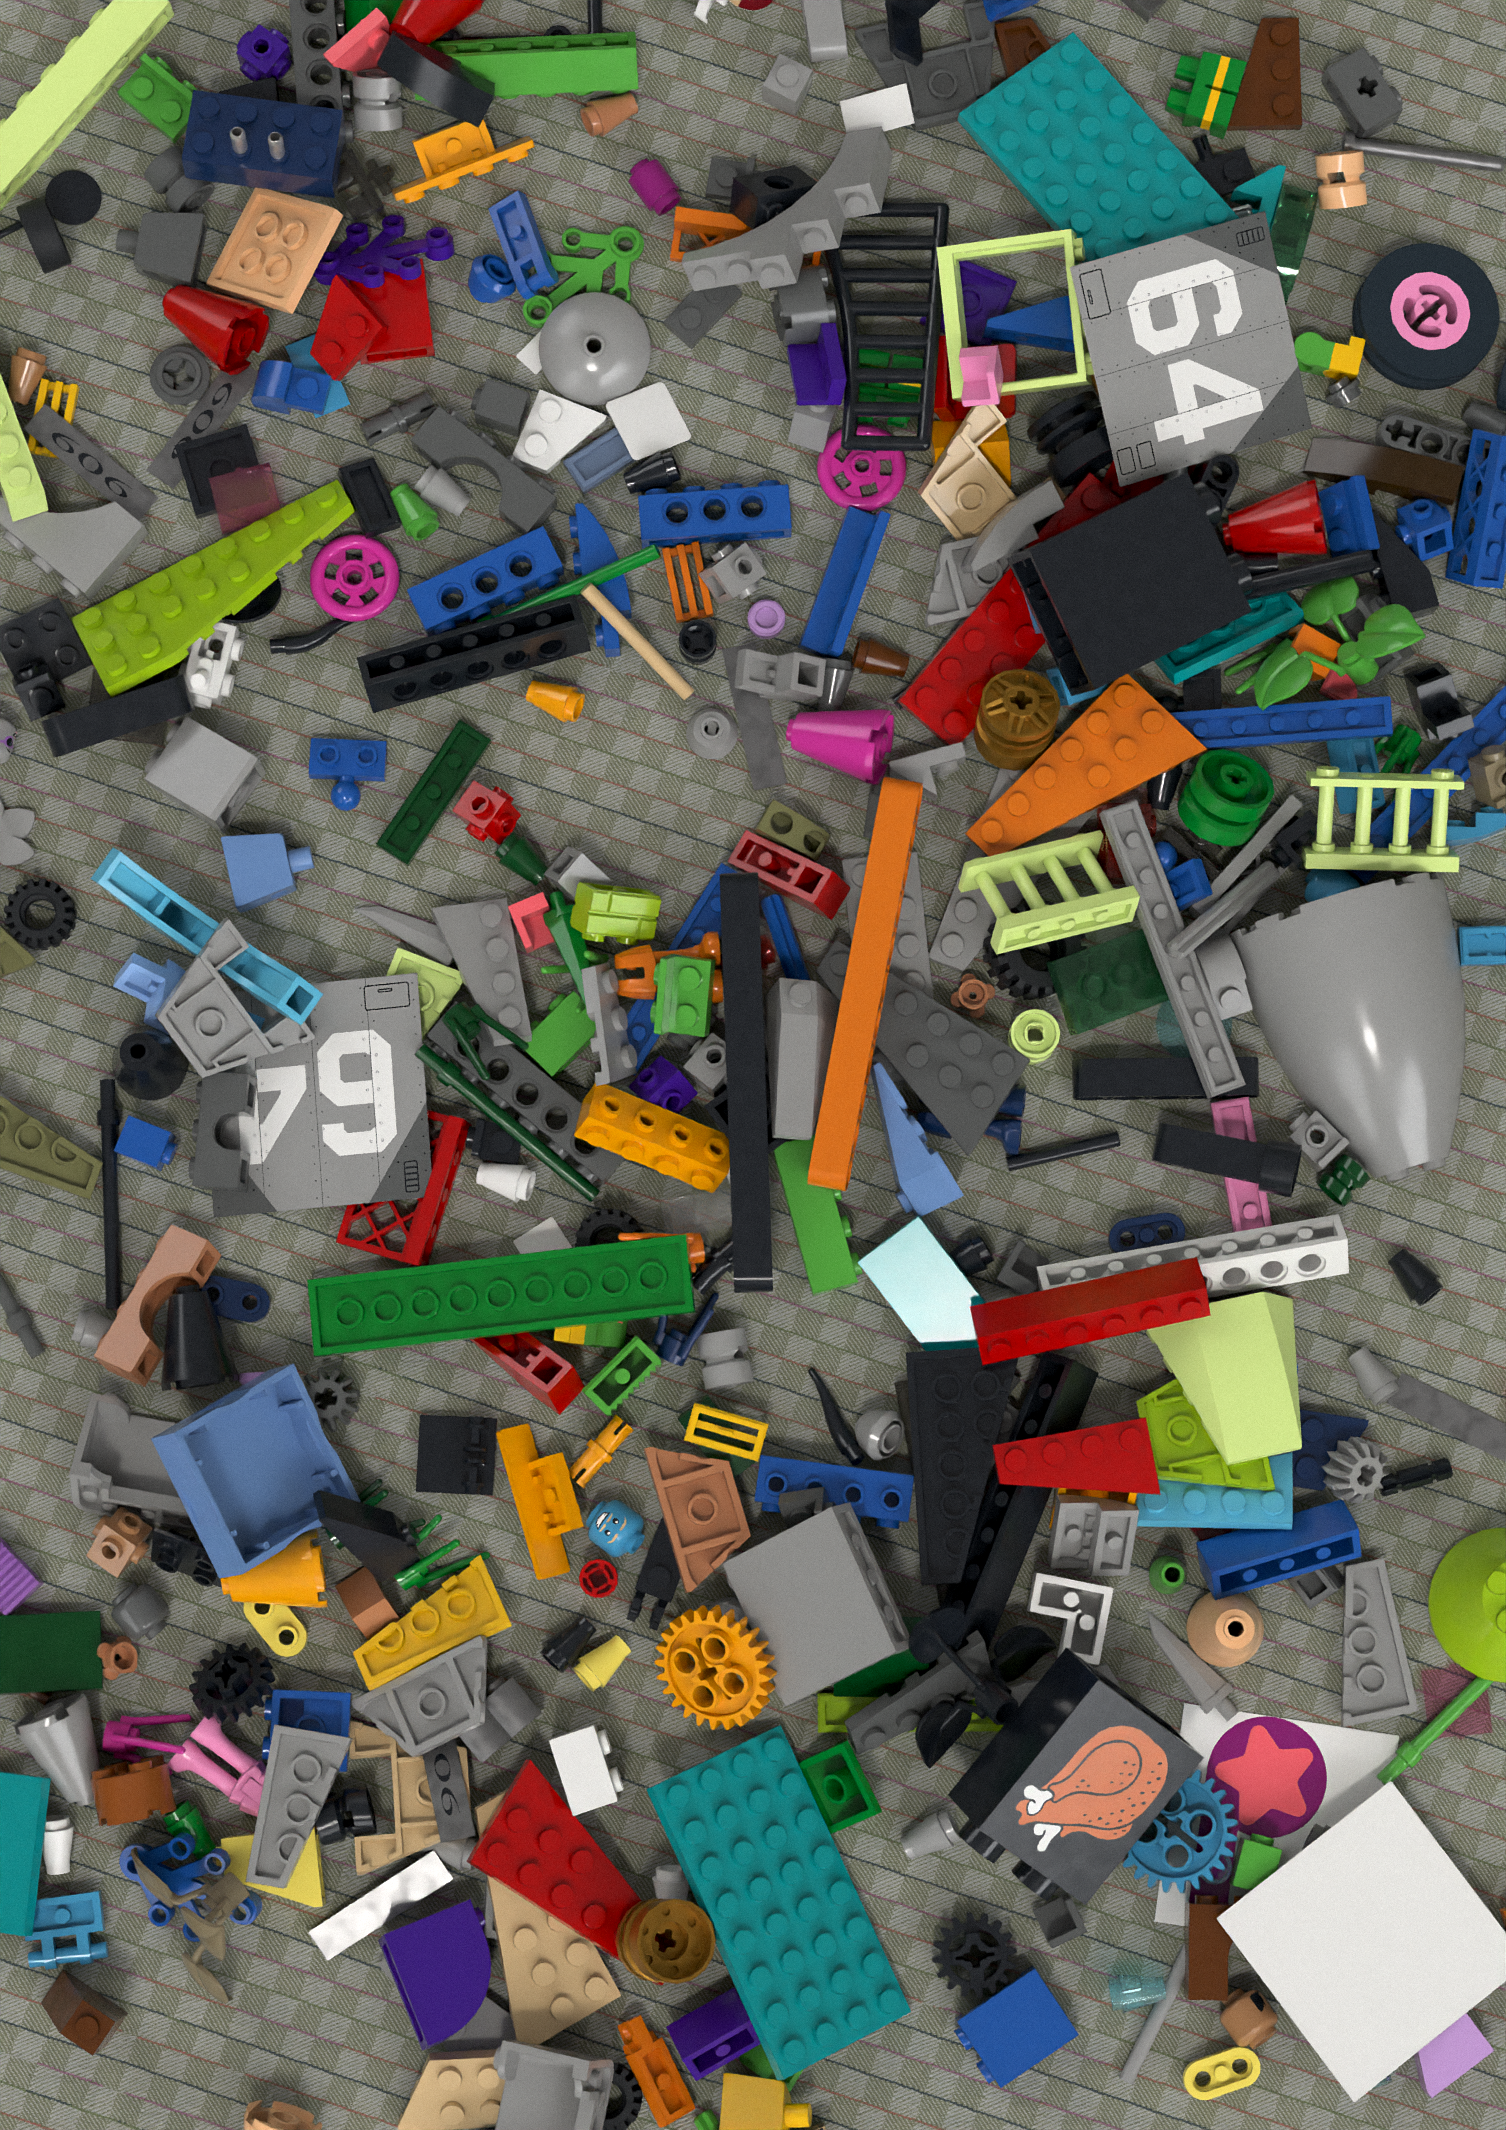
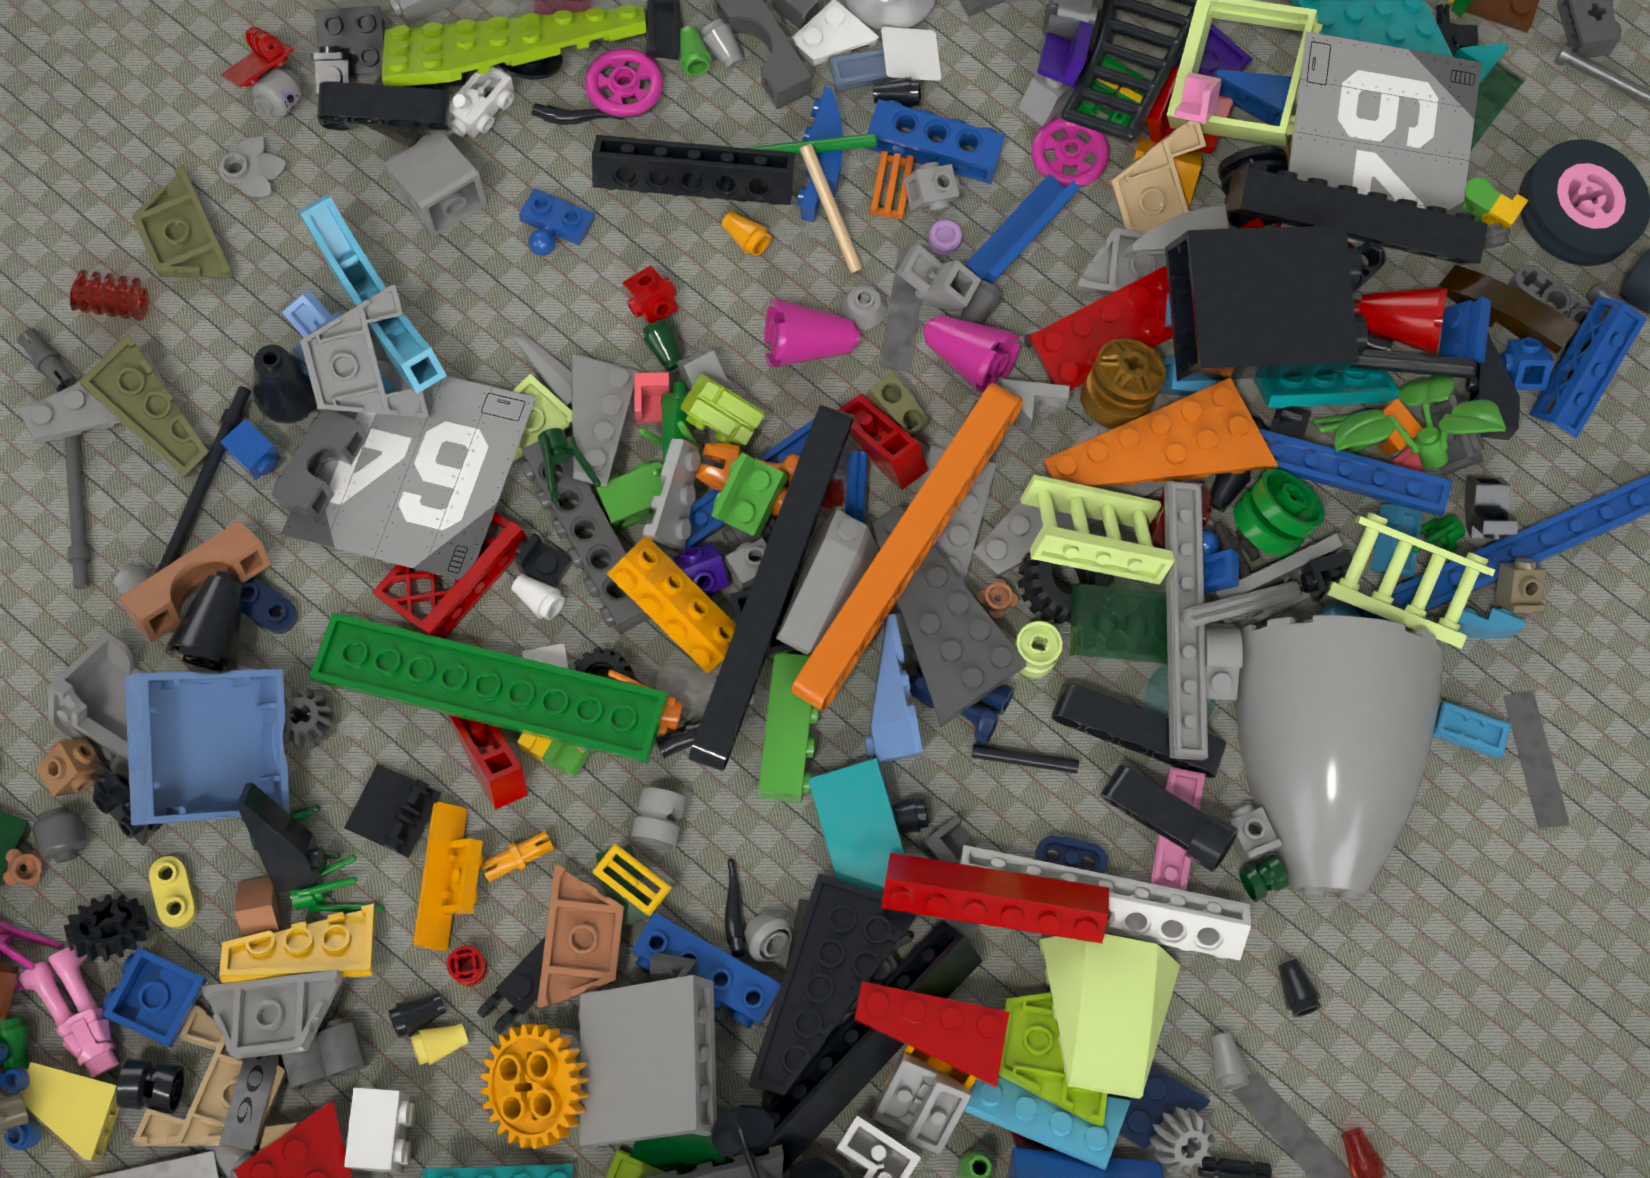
camera: 20 degrees right, 10 degrees down
(19, 904) = (247, 223): black tyre -> none
(262, 867) = (448, 271): medium blue torso -> none
(287, 1578) = (193, 849): light orange cone -> none
(293, 1793) = (110, 1045): light grey wing -> none
(433, 793) = (613, 268): dark green tile -> none
(450, 1074) = (526, 488): dark green bar -> none
(463, 579) = (739, 111): blue brick -> none
(615, 1528) = (501, 927): dark azure head -> none
(622, 1376) = (563, 797): bright green brick -> none
(666, 791) = (806, 334): none -> dark pink cone
(677, 1343) = (623, 789): dark blue plant -> none
(694, 636) = (884, 224): black wheel -> none
(878, 659) = (1026, 300): reddish brown cone -> none
(1192, 440) = (1366, 217): none -> black brick
(1341, 193) = (1547, 84): light nougat wheel -> none

